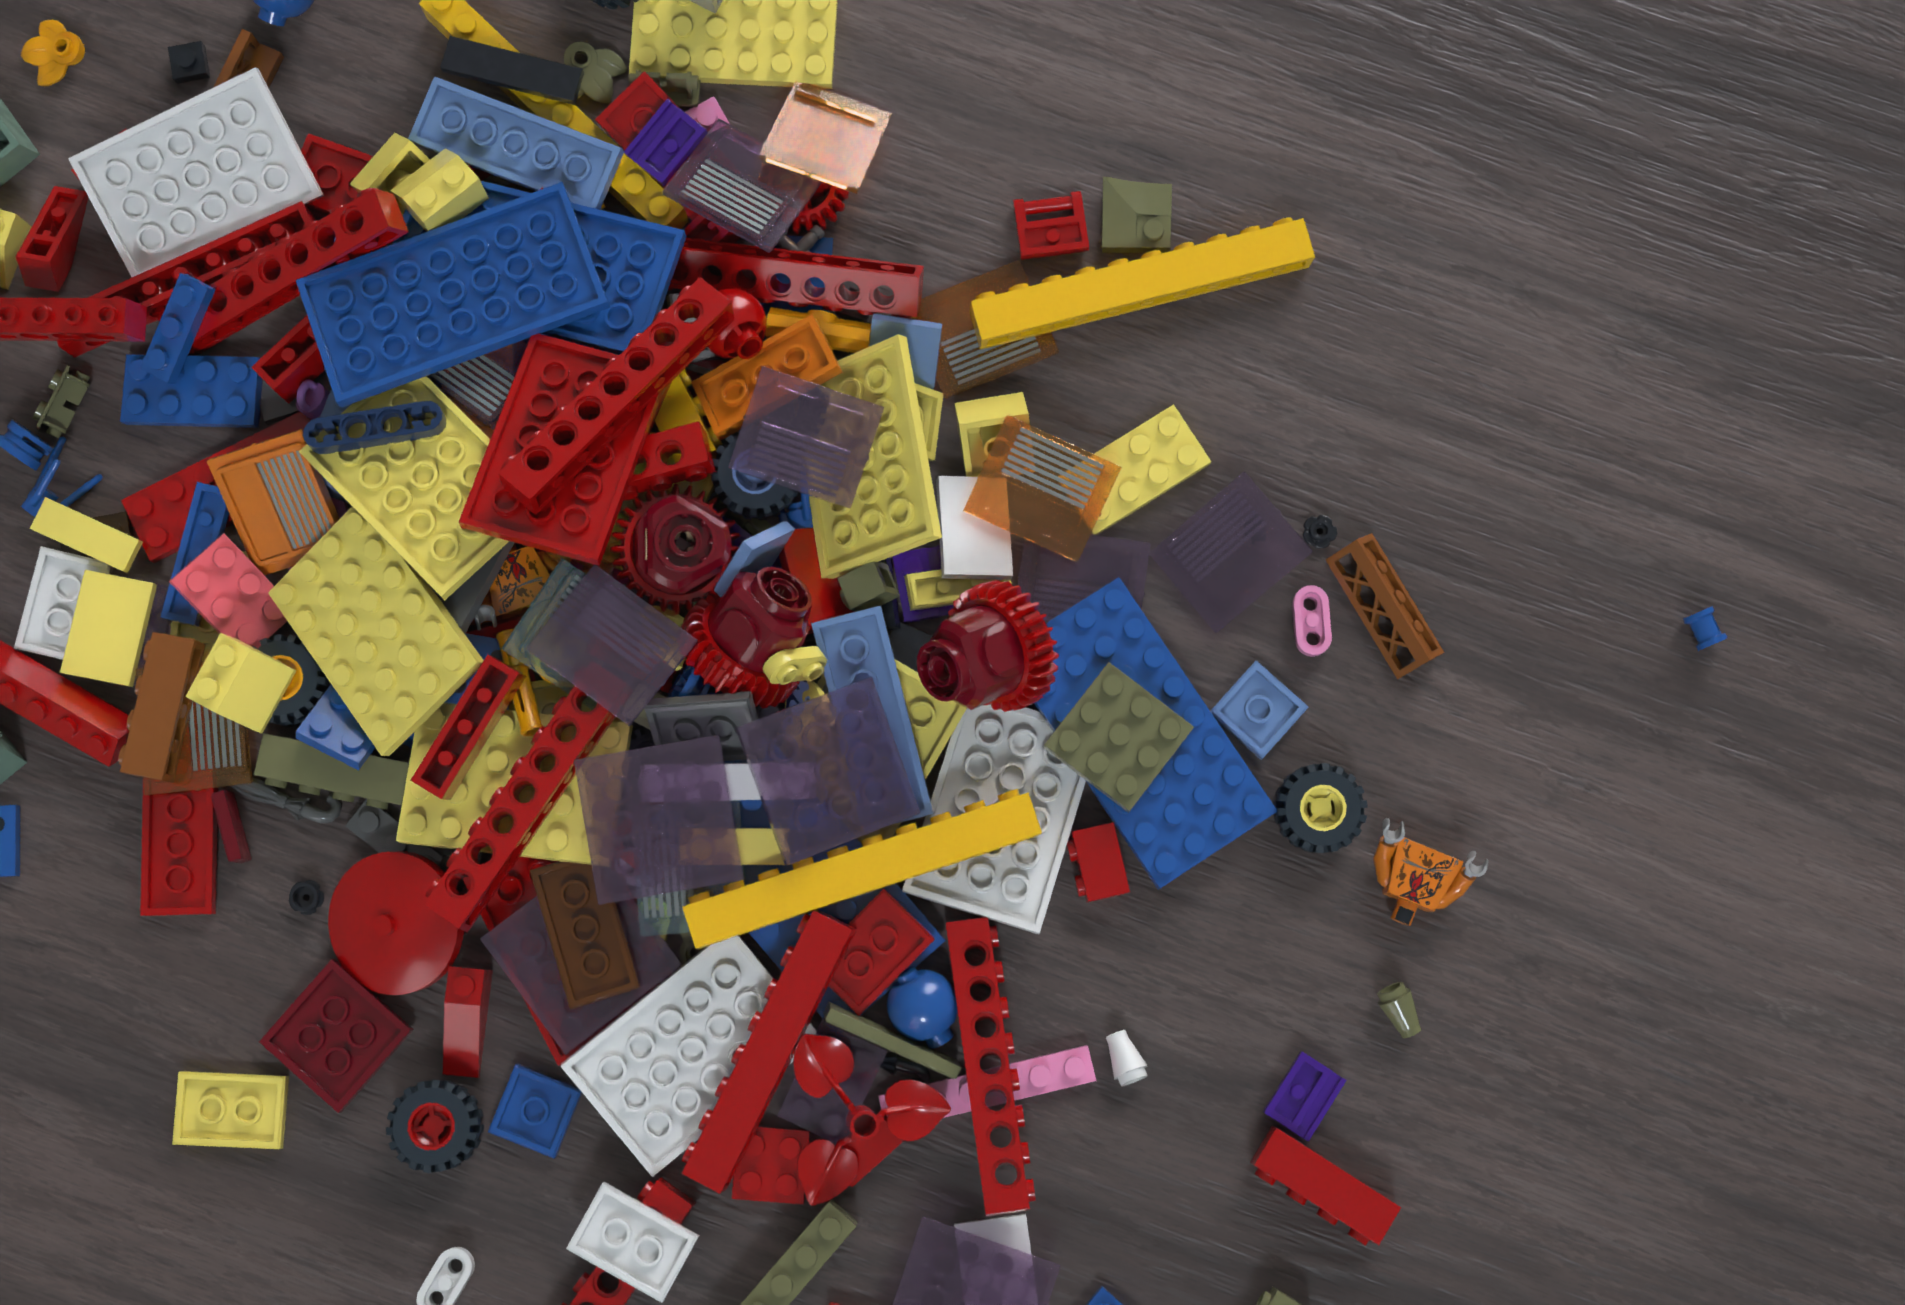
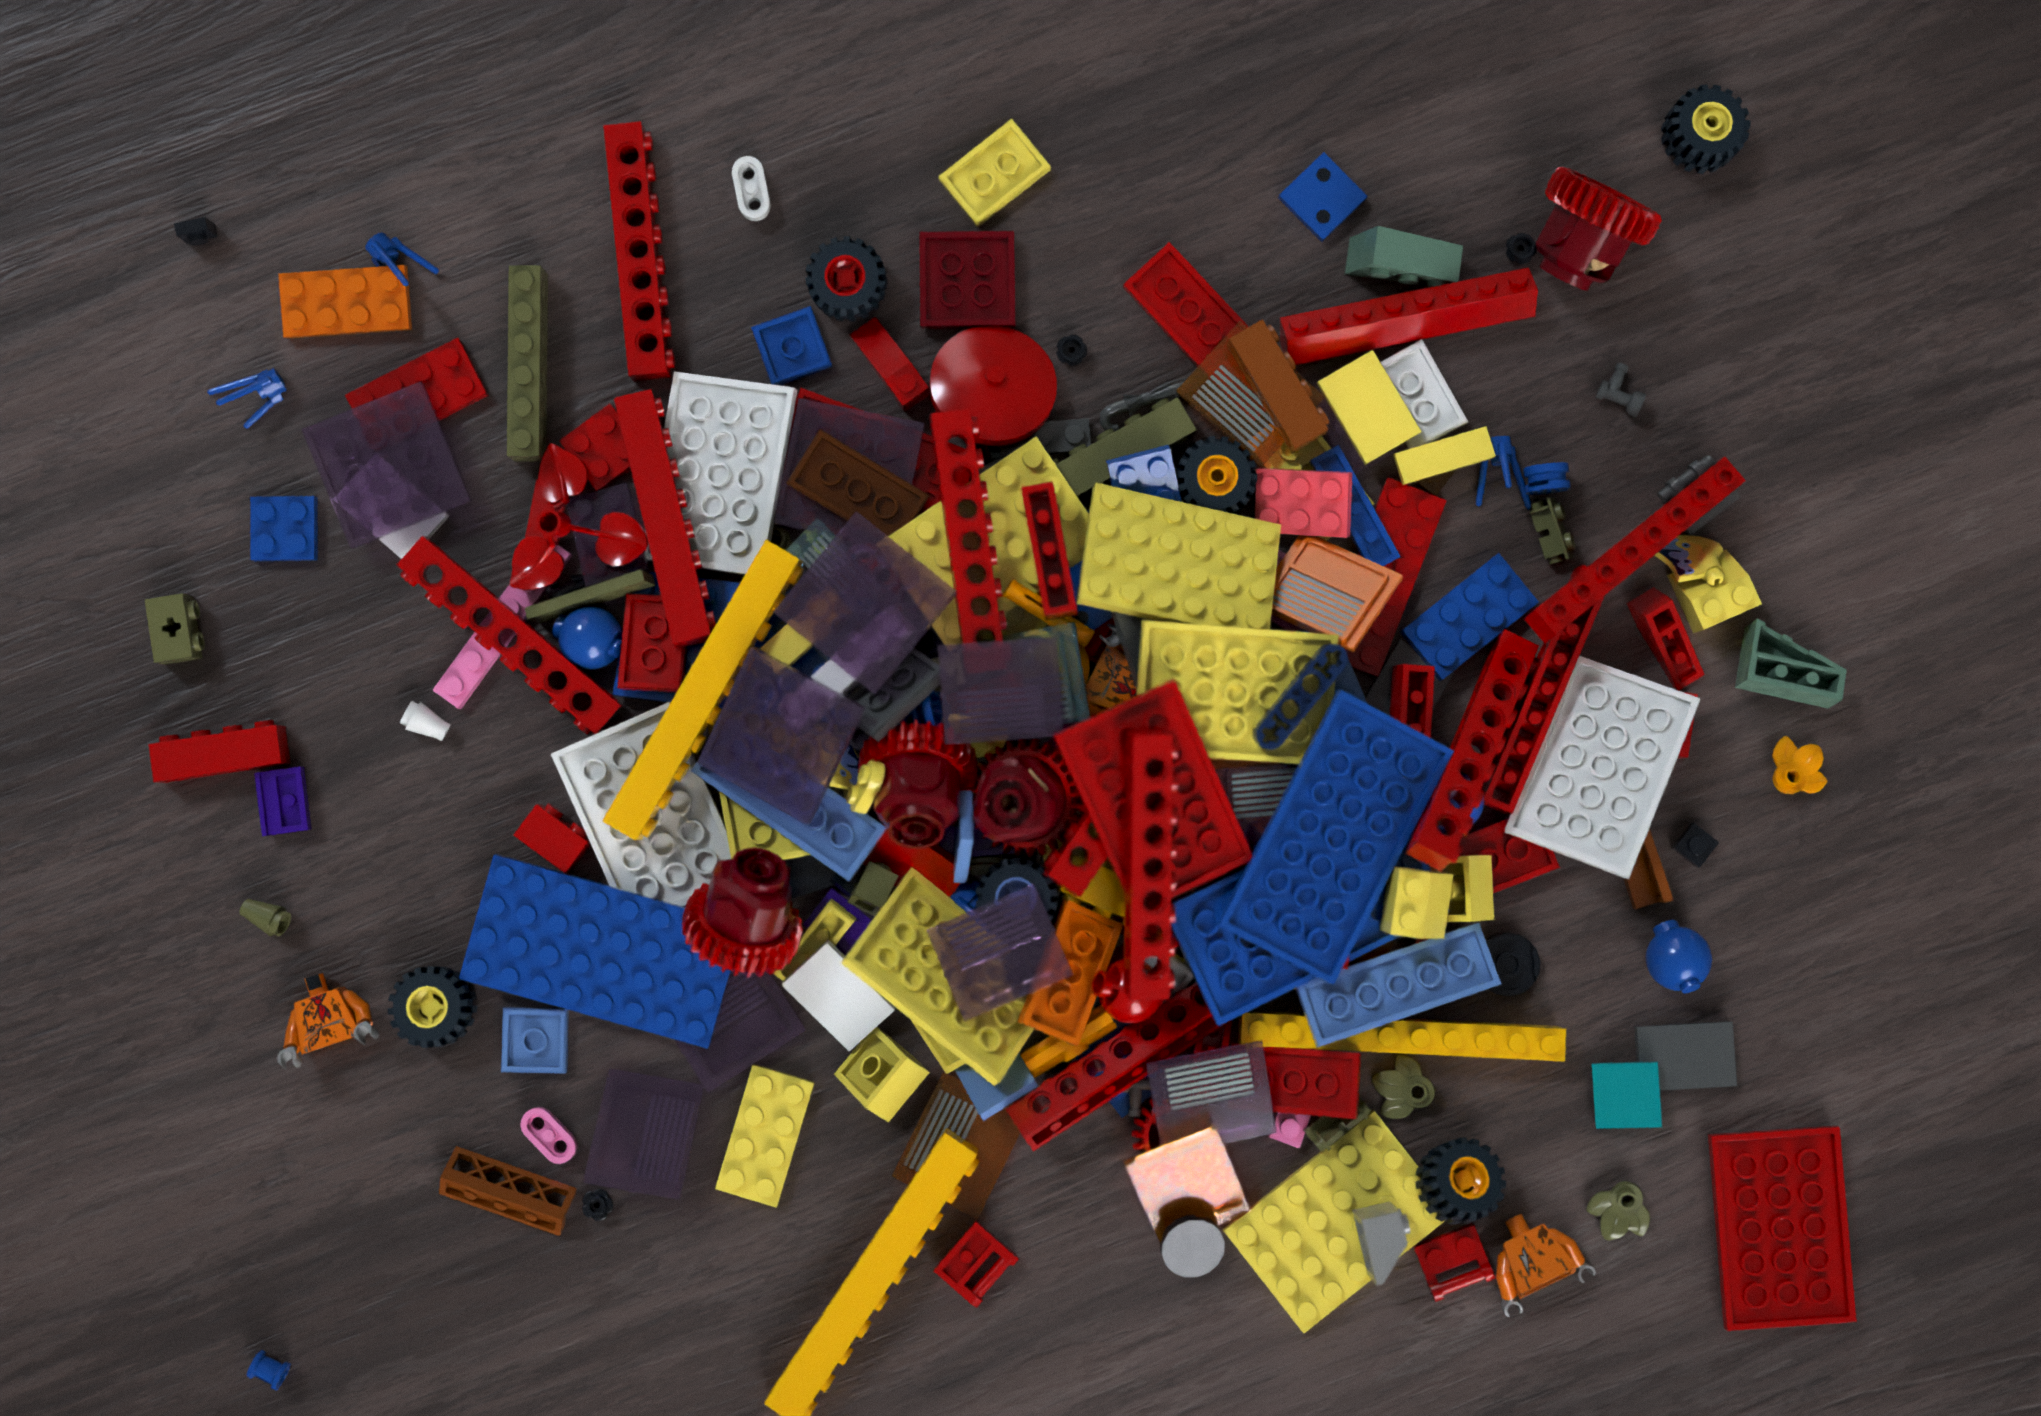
camera: 135 degrees right, 5 degrees up
(177, 328) = (1513, 649): blue plate -> none
(231, 826) = (1163, 351): dark red tile -> none
(241, 683) = (1237, 448): light yellow slope -> none
(311, 398) = (1376, 683): medium lavender tile -> none
(408, 91) = (1515, 963): none -> black tile
(512, 70) = (1450, 1037): black tile -> none
(632, 1242) = (645, 318): white tile -> none
(665, 142) = (1294, 1080): dark purple plate -> none
(865, 92) = (1192, 1246): none -> tile
(1042, 488) = (813, 1064): clear orange piece -> none
(1118, 737) = (608, 933): olive plate -> none
(1136, 216) = (920, 1324): olive plate -> none

